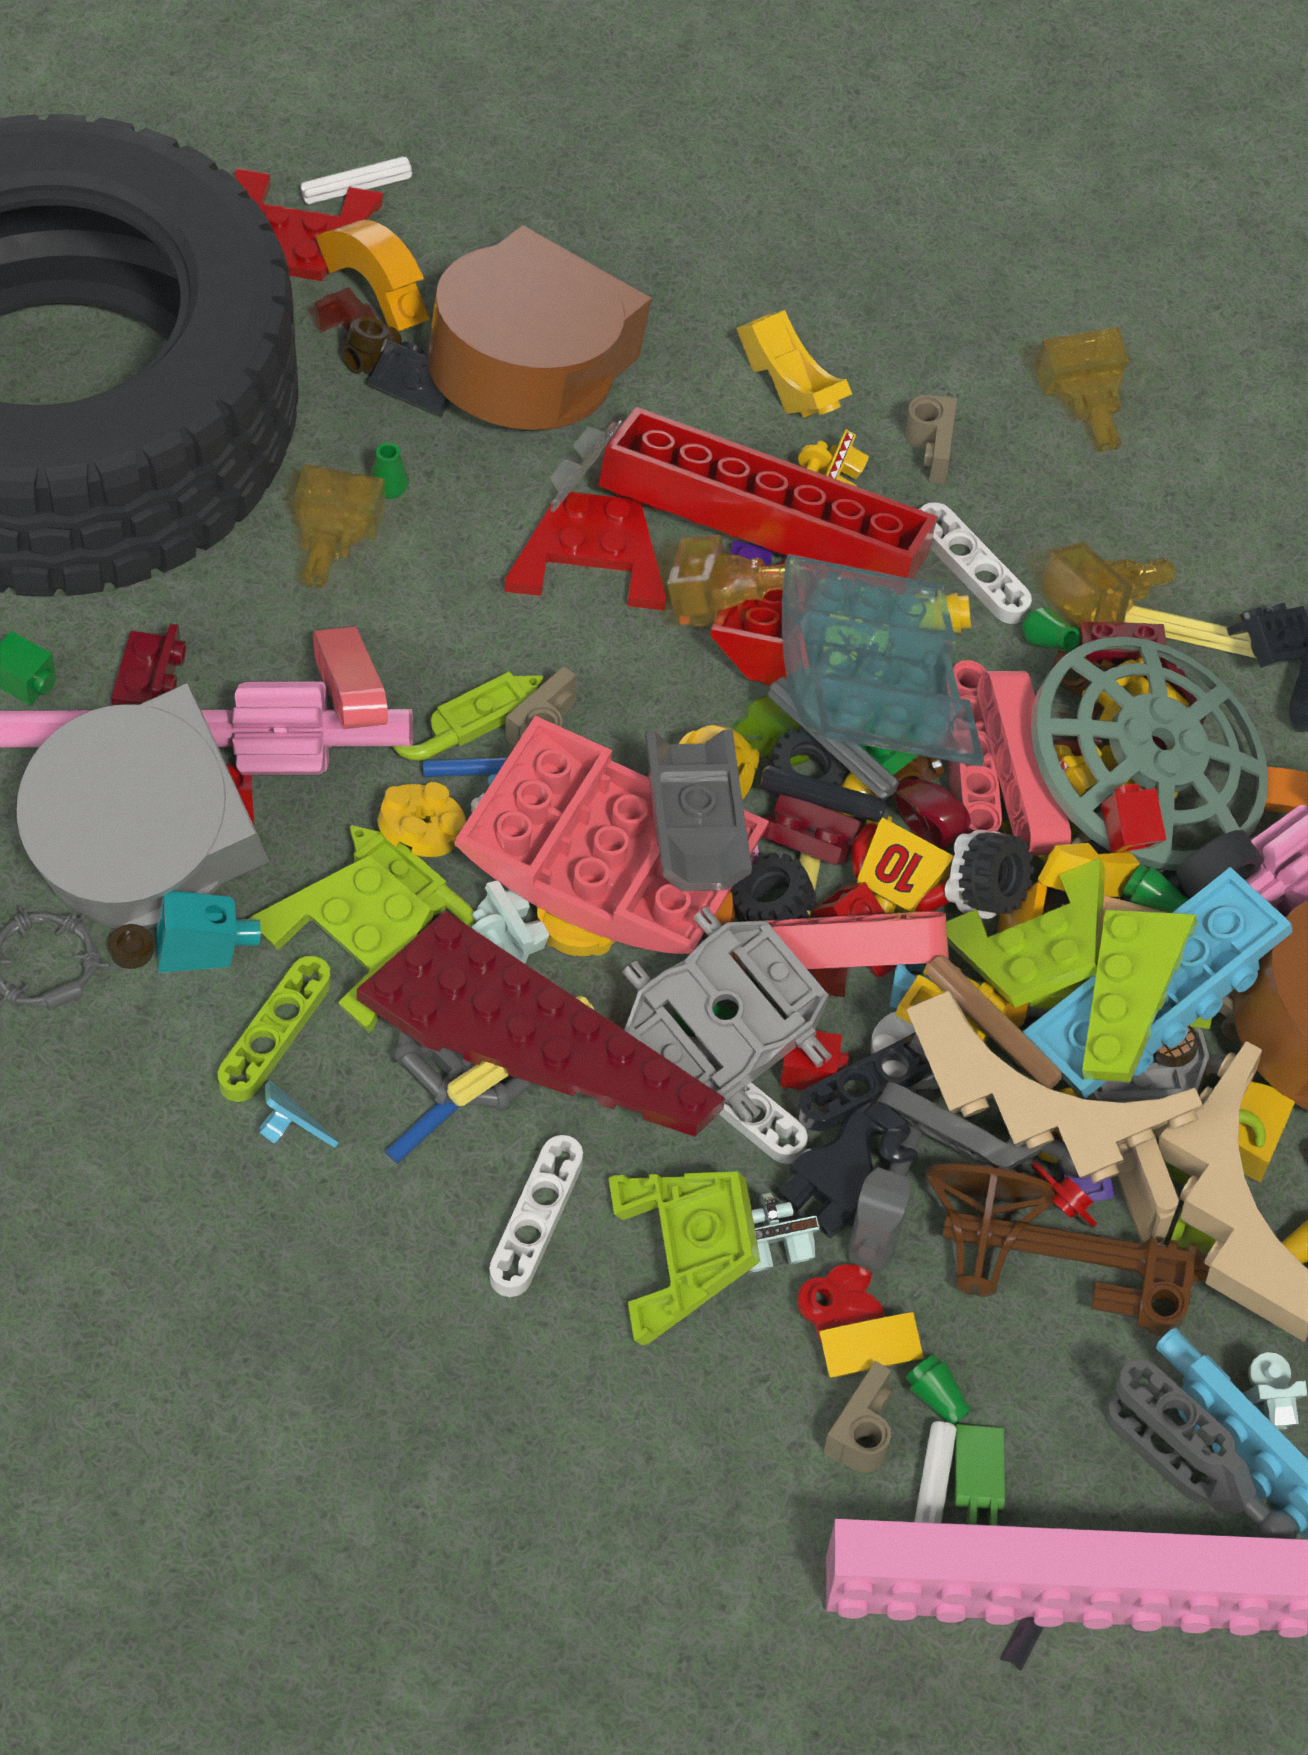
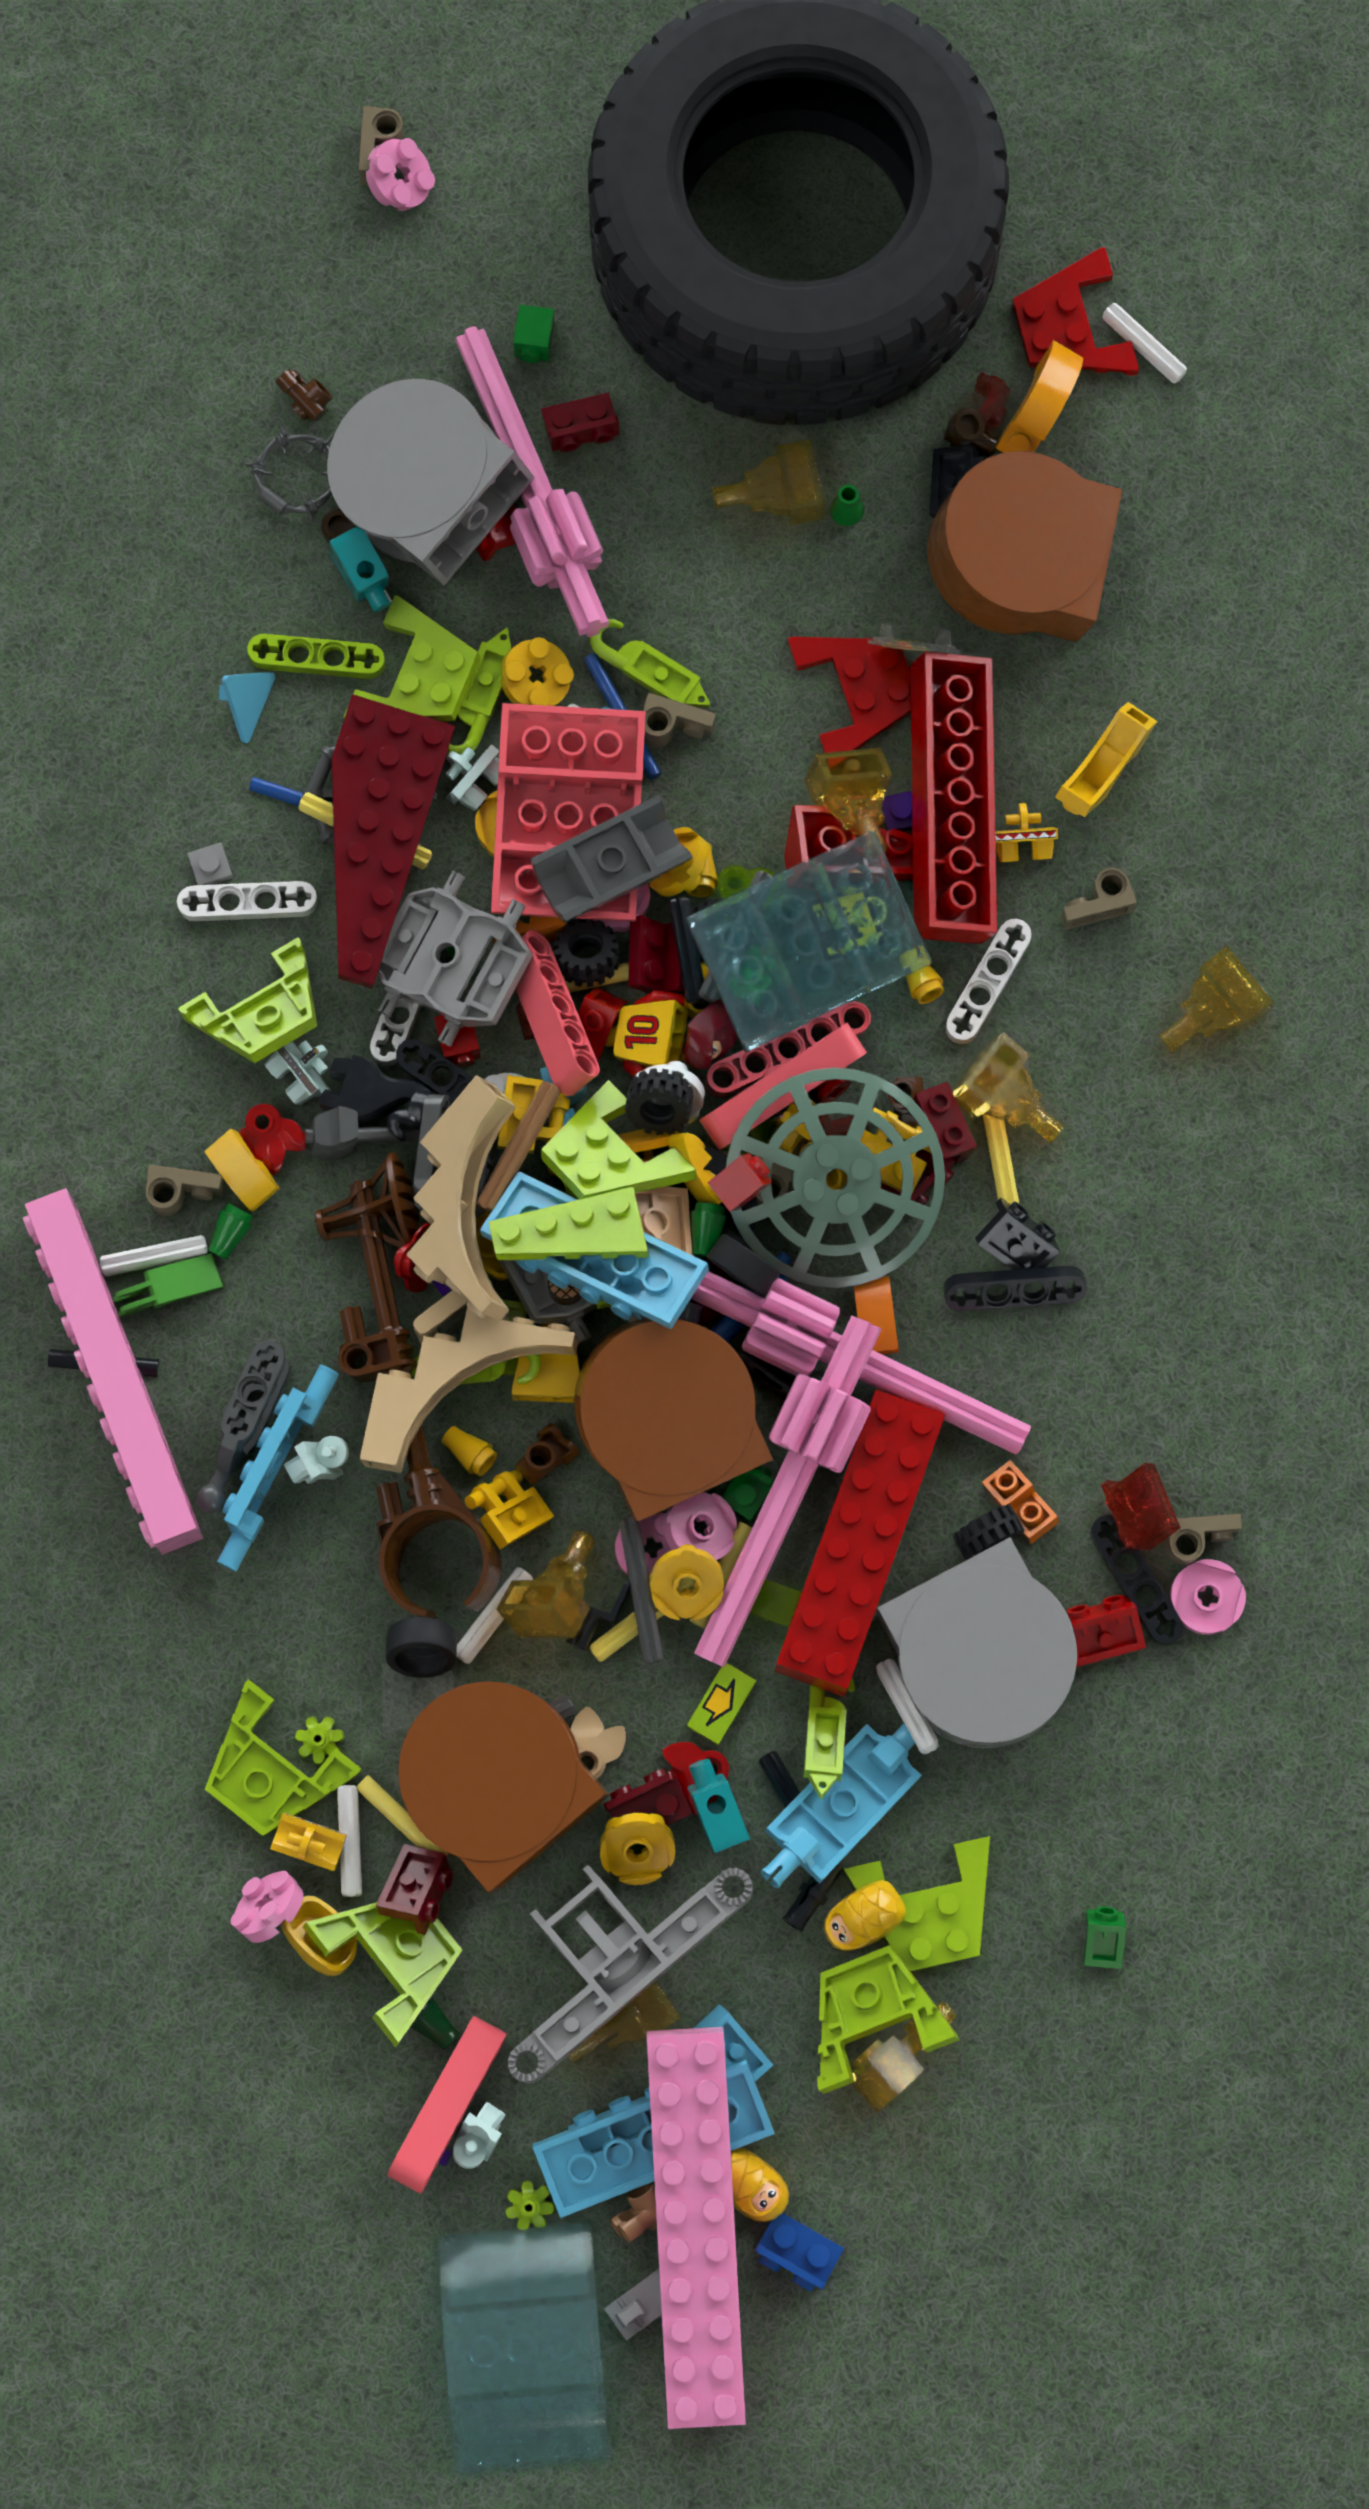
camera: 70 degrees right, 20 degrees up
(350, 677) = (616, 564): coral beam -> none
(471, 1238) = (210, 865): none -> light grey plate
(1049, 630) = (940, 1062): green cone -> none

